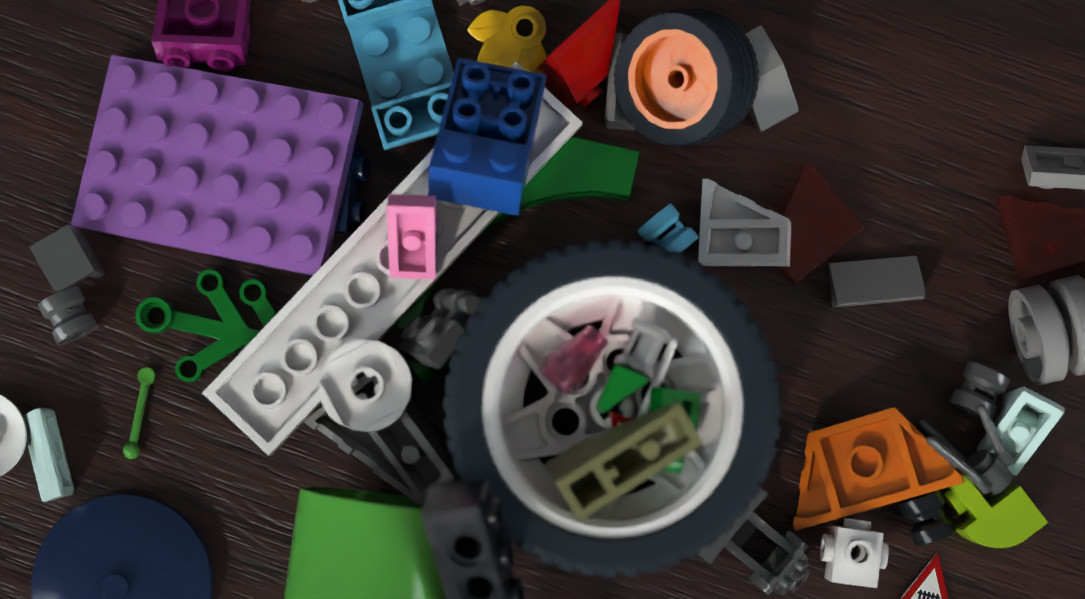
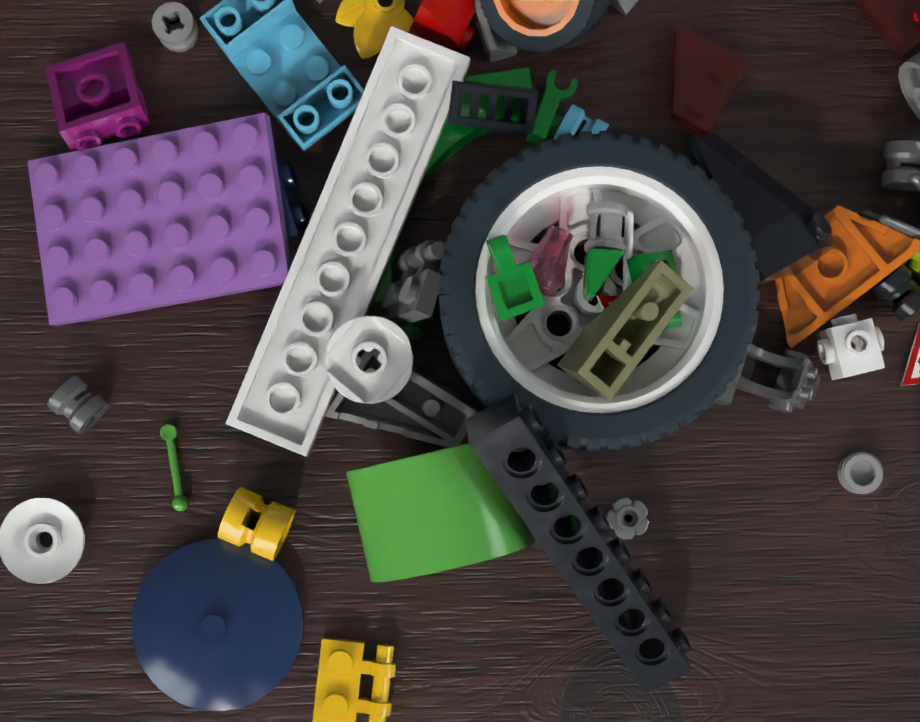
camera: 25 degrees left, 0 degrees up
(48, 455) = (107, 535): light aqua slope -> none
(66, 258) = (56, 354): dark grey panel -> none
(208, 511) = (270, 529): none -> yellow wheel
(232, 332) = (229, 366): green plant -> none
(412, 236) = (360, 211): bright pink slope -> none
(486, 136) = (392, 100): blue slope -> none
(527, 372) = (513, 285): none -> green plate
(593, 201) = (527, 108): none -> black slope
(638, 208) = (546, 117): none -> green plate
(740, 231) = (644, 103): white wing -> none
(819, 397) = (781, 225): none -> black wedge
(876, 281) = (777, 106): light grey slope -> none

